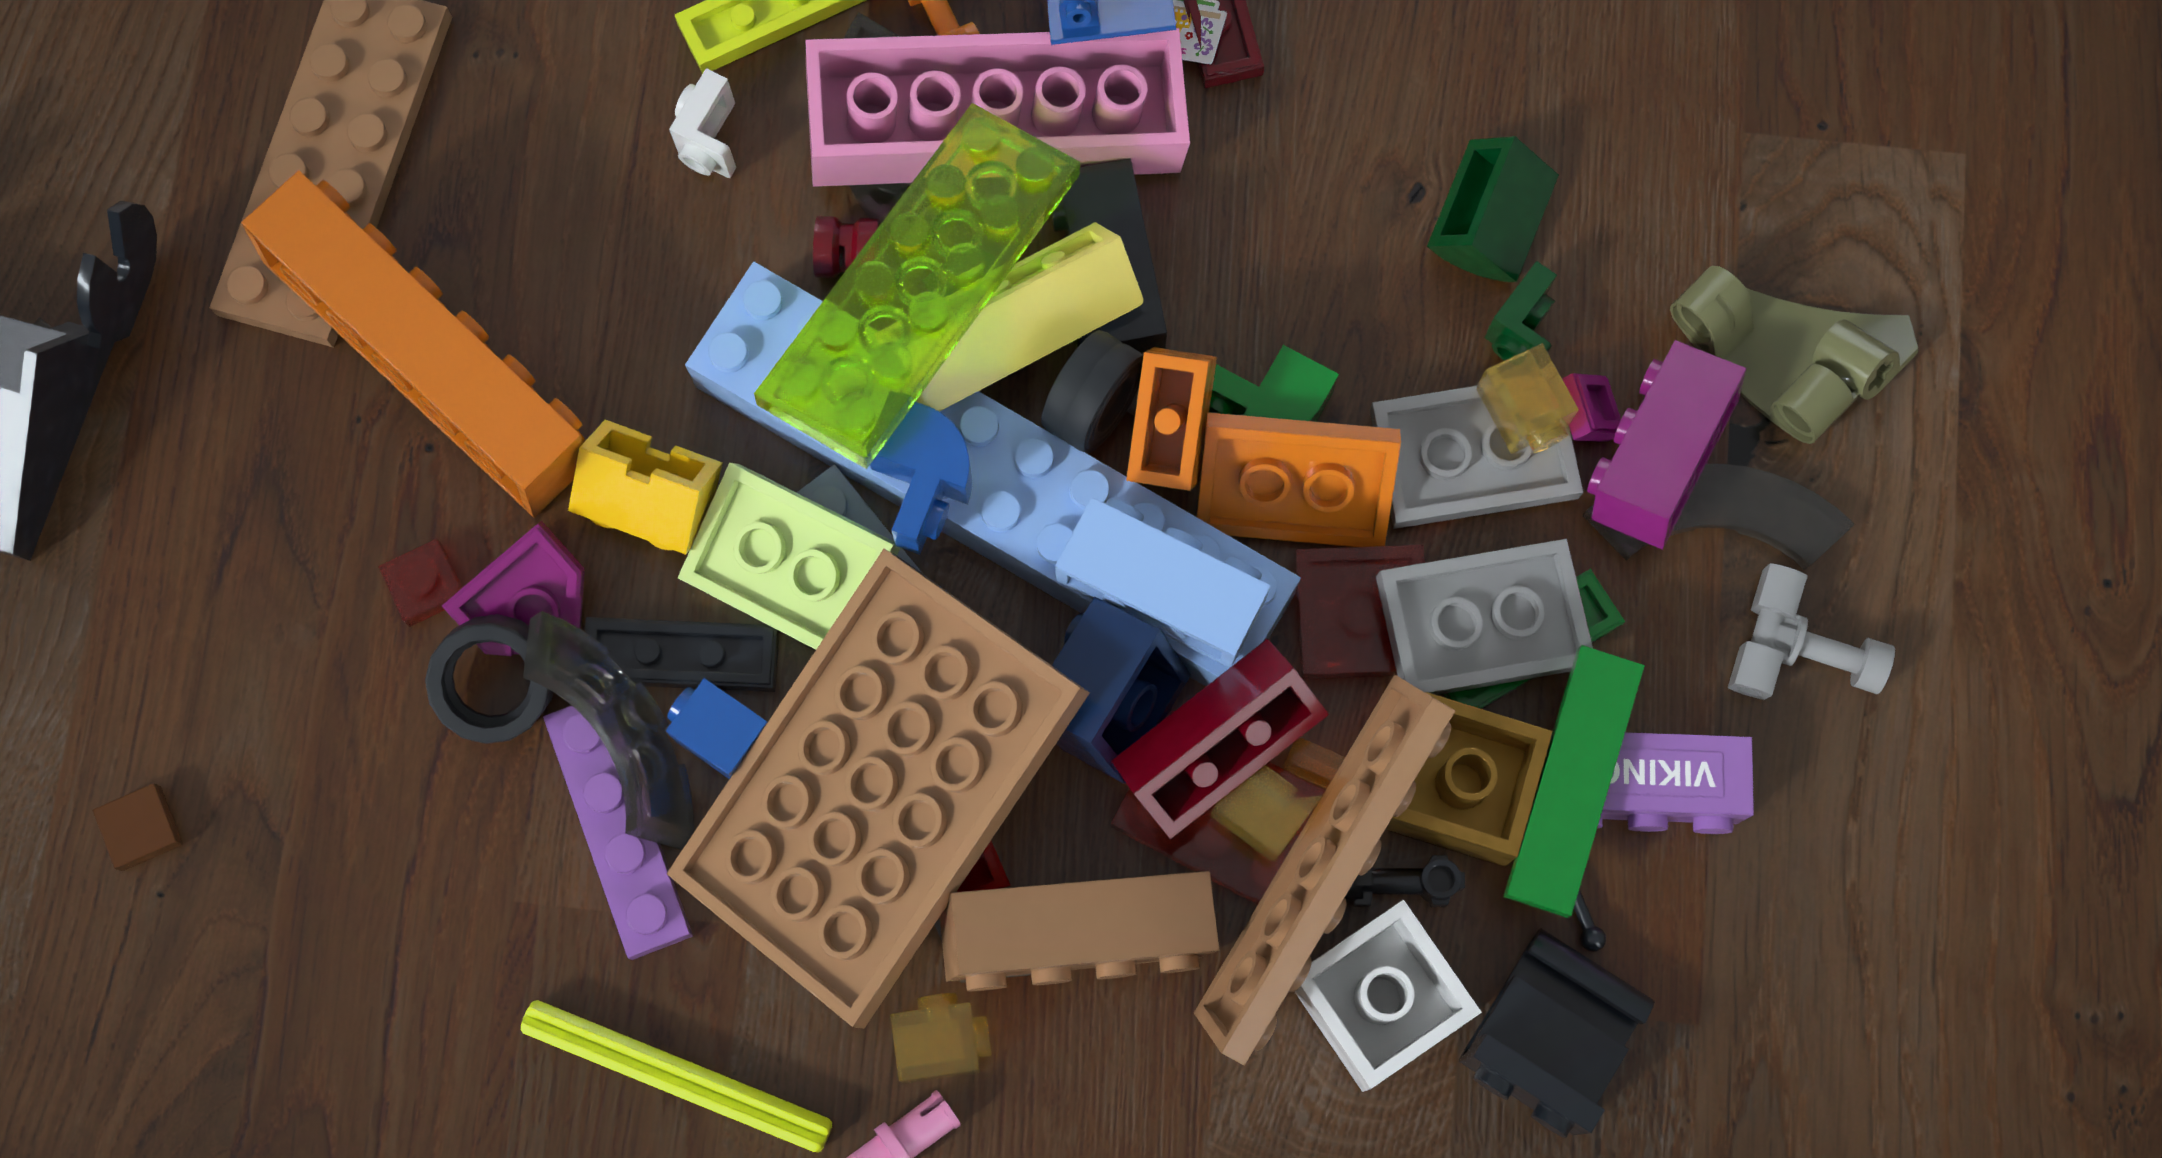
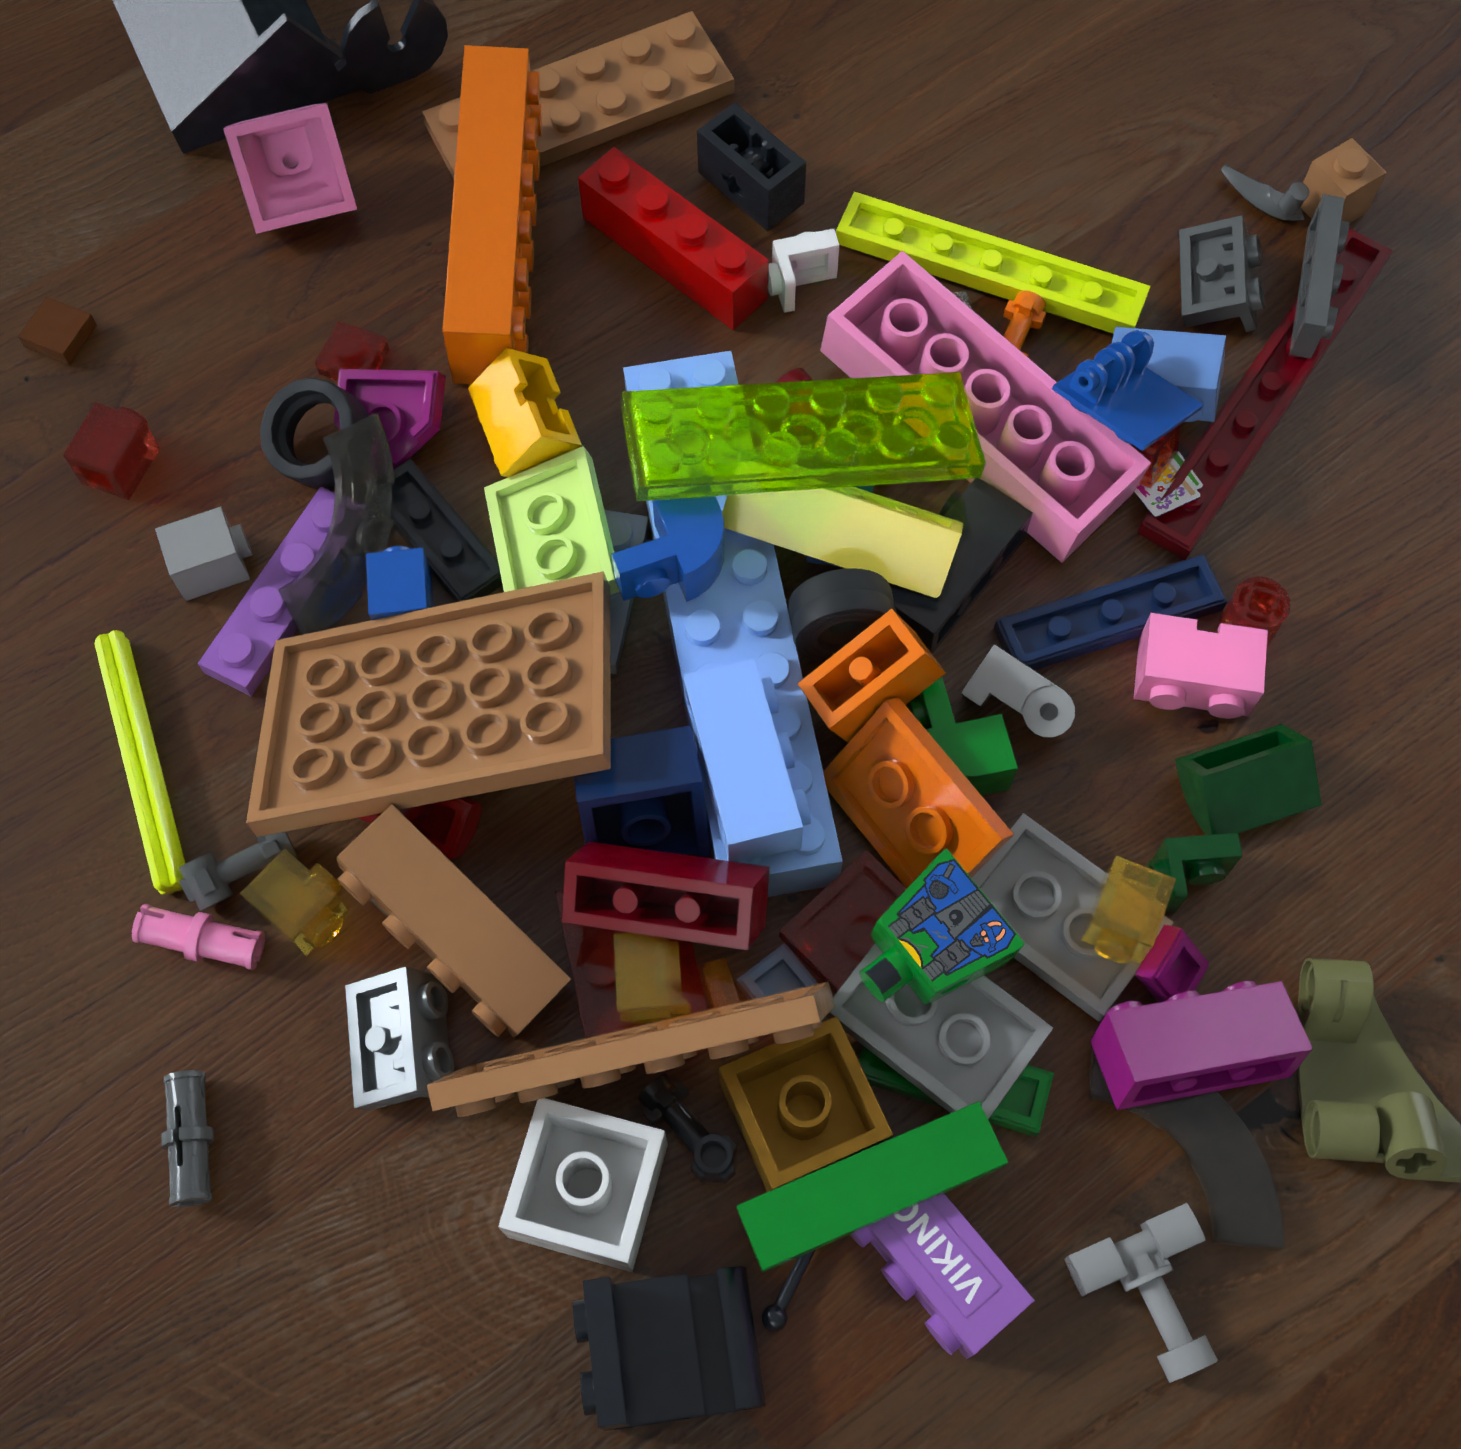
camera: 50 degrees right, 10 degrees down
(174, 474) = (290, 167): none -> bright pink brick
(332, 871) = (112, 450): none -> clear red brick
(522, 868) = (204, 553): none -> light grey brick
(567, 78) = (751, 166): none -> black brick
(573, 206) = (674, 238): none -> red brick
(848, 1101) = (209, 880): none -> dark grey bar
(1129, 1050) = (397, 1037): none -> bracket
(1258, 179) = (1109, 613): none -> dark blue tile
(1271, 308) = (1042, 703): none -> light grey leg
(1348, 710) = (775, 974): none -> sand blue tile
(1360, 166) = (1199, 667): none -> bright pink brick
(1362, 86) = (1259, 605): none -> clear red wheel
(1433, 560) = (938, 936): none -> torso

